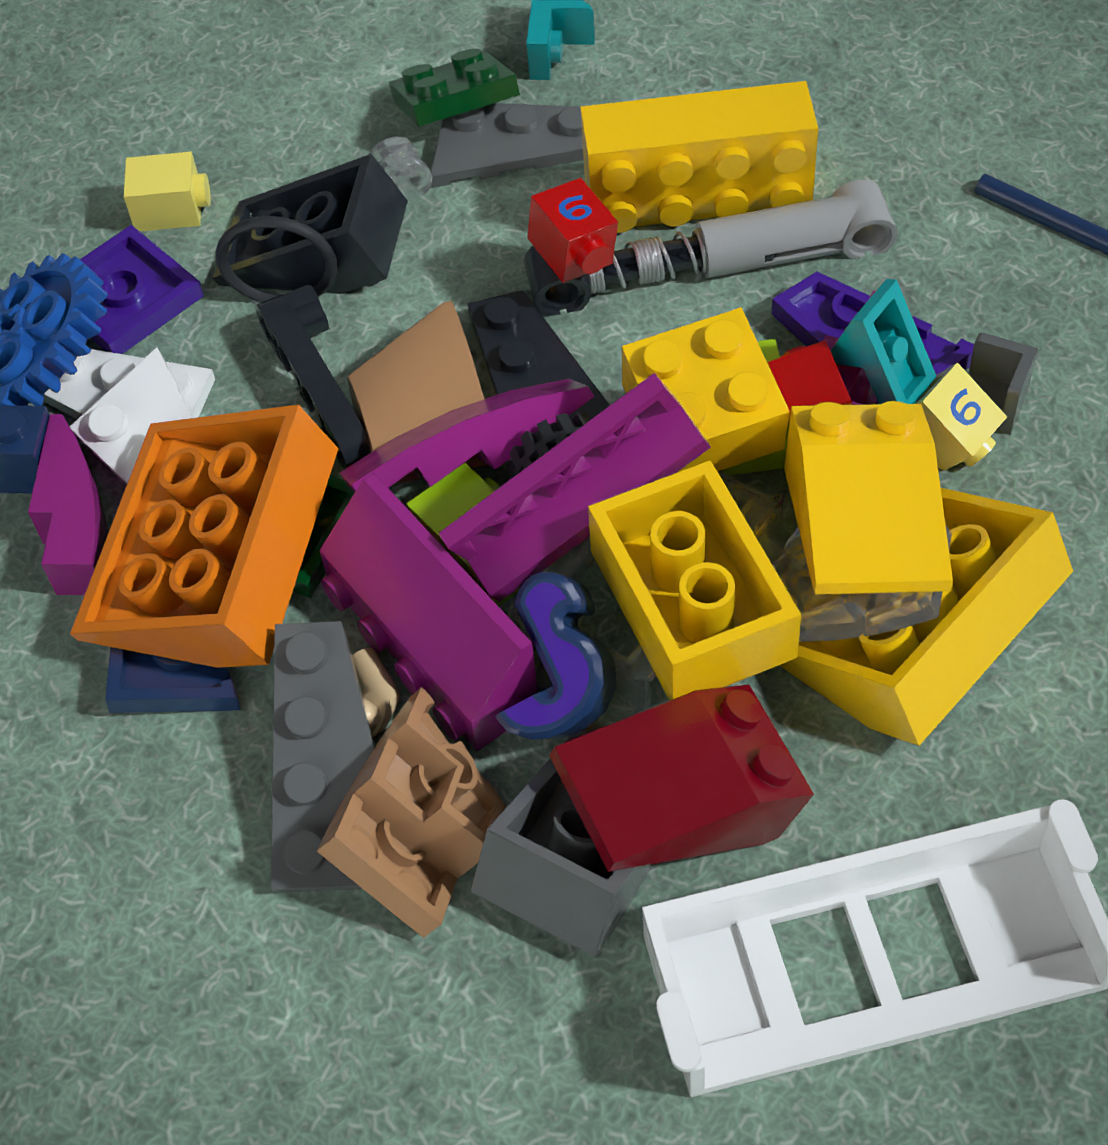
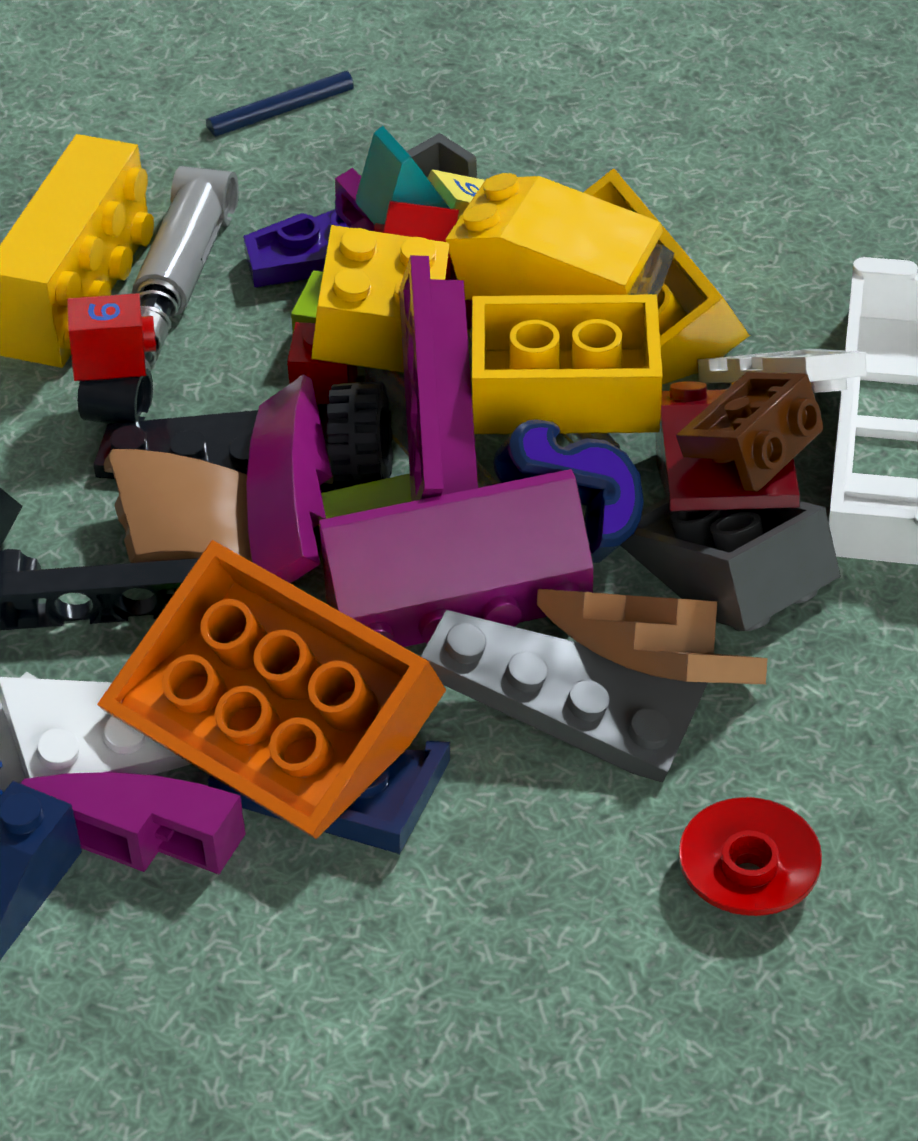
camera: 70 degrees left, 10 degrees down
(162, 970) = (753, 833): none -> red dish
(669, 782) = (756, 424): none -> reddish brown bracket
(856, 798) = (825, 368): none -> white wing

